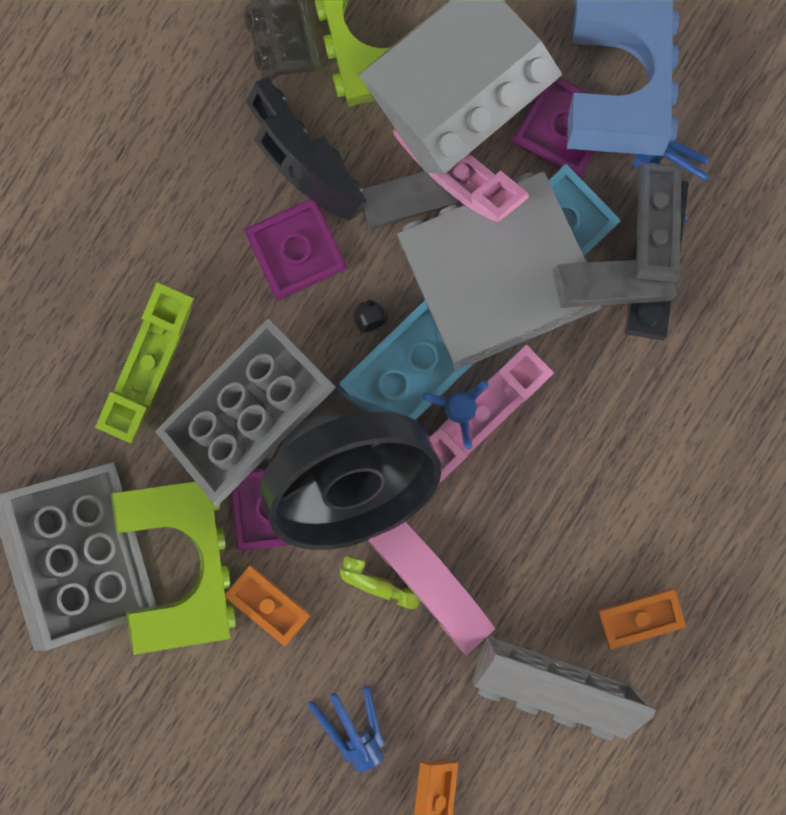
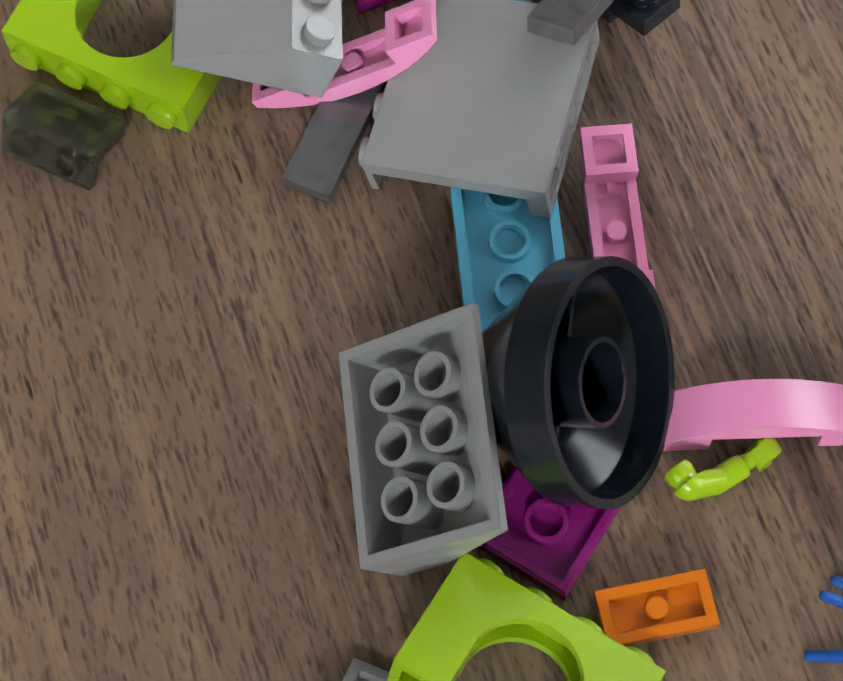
camera: 55 degrees left, 20 degrees down
(146, 364) = (274, 527): lime slope -> none
(295, 249) = (287, 287): magenta tile -> none
(307, 164) = (209, 201): black slope -> none
(369, 316) = (421, 263): black hinge -> none
(459, 408) = (596, 234): blue plant -> none

